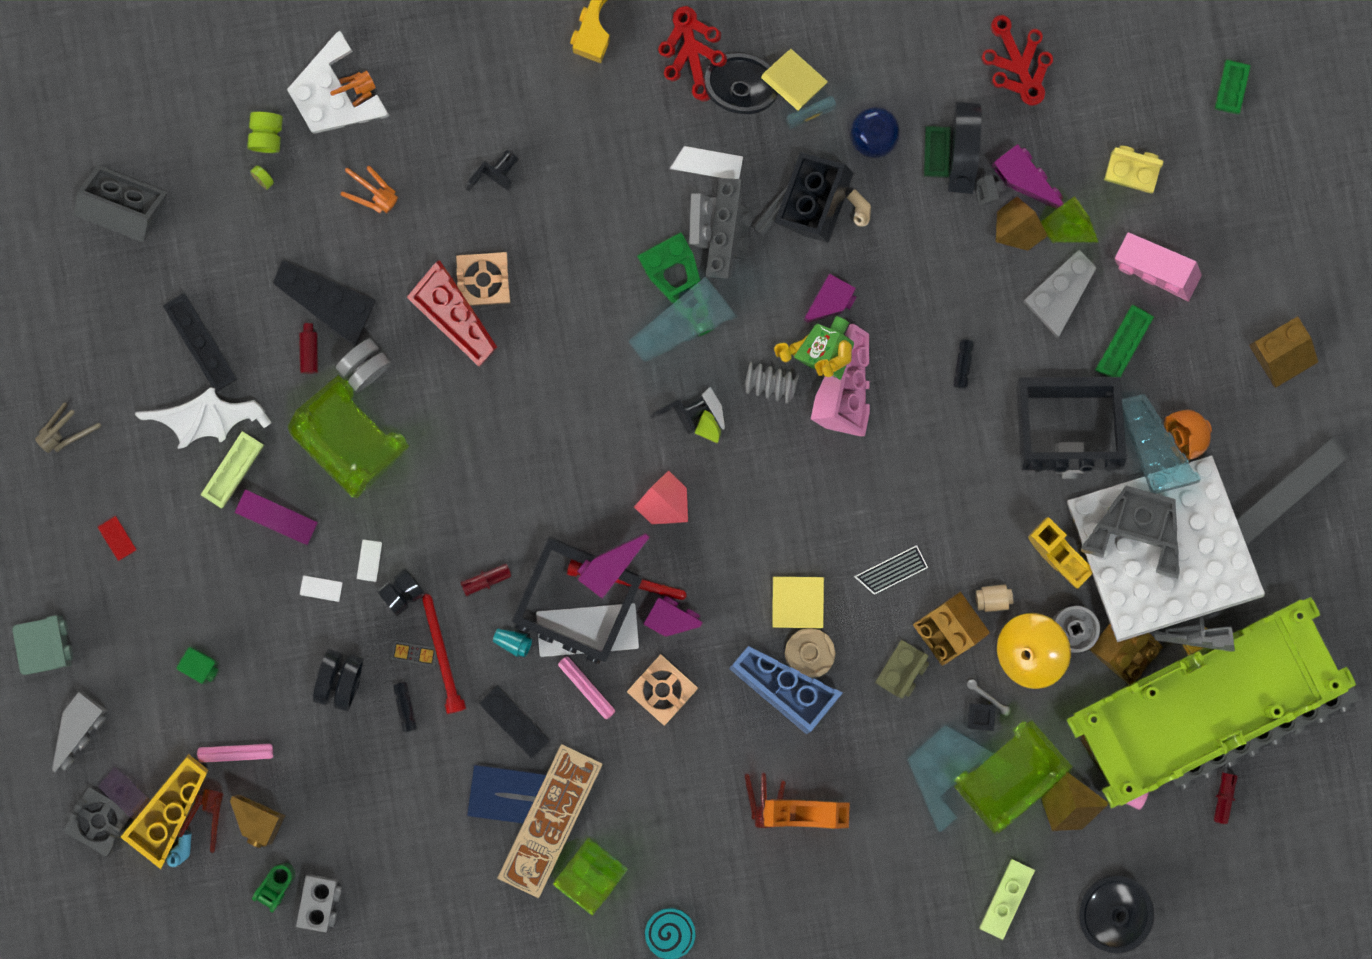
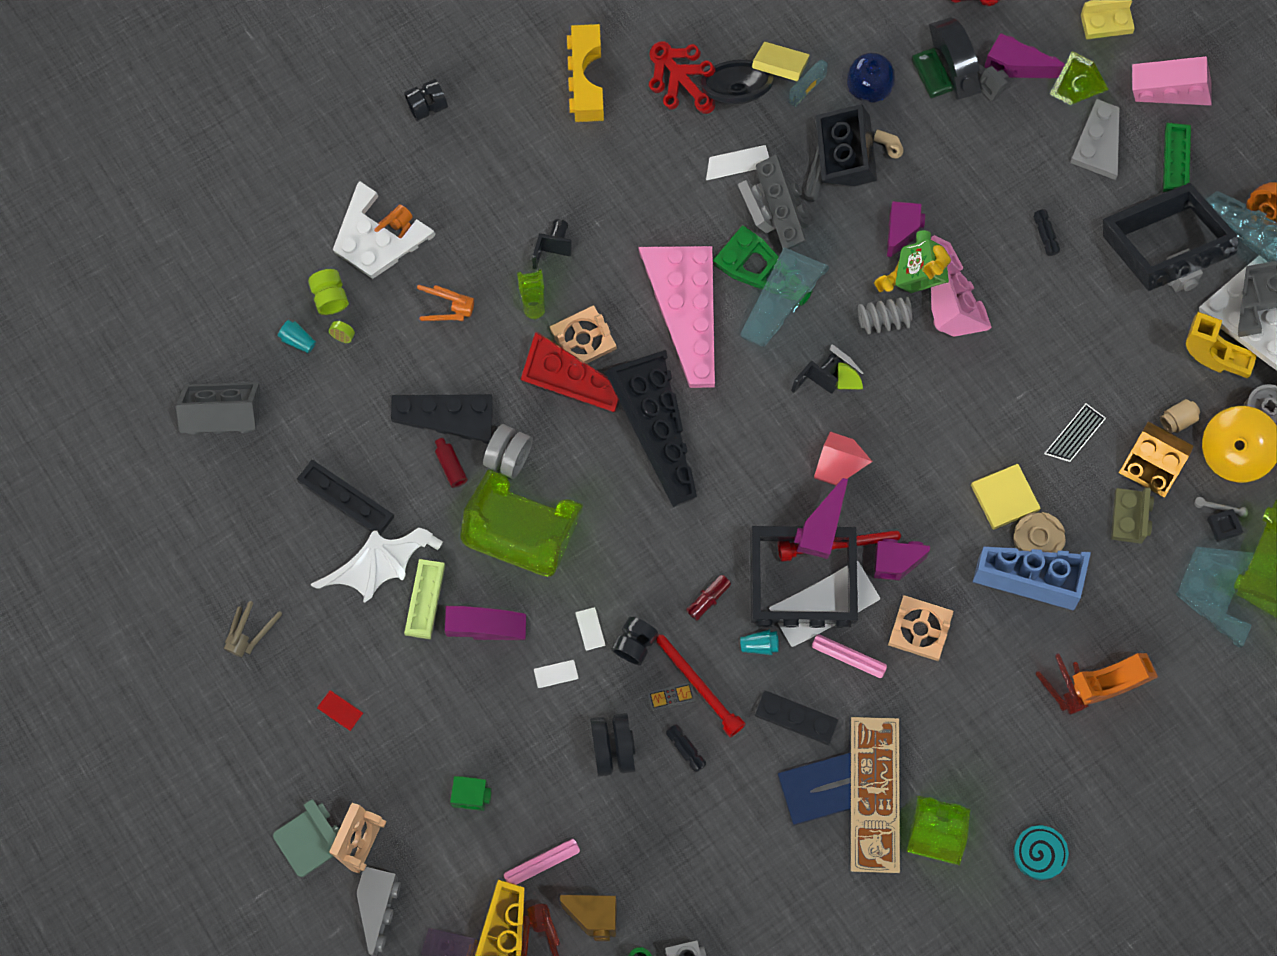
camera: 15 degrees left, 15 degrees down
(67, 668) = (353, 823): none -> light nougat piece
(218, 164) = (296, 336): none -> teal cone
(455, 209) = (531, 290): none -> clear neon green piece
(512, 387) = (654, 414): none -> black wing
(596, 277) = (685, 296): none -> bright pink wing
(1018, 226) = (1036, 99): pearl gold slope -> none

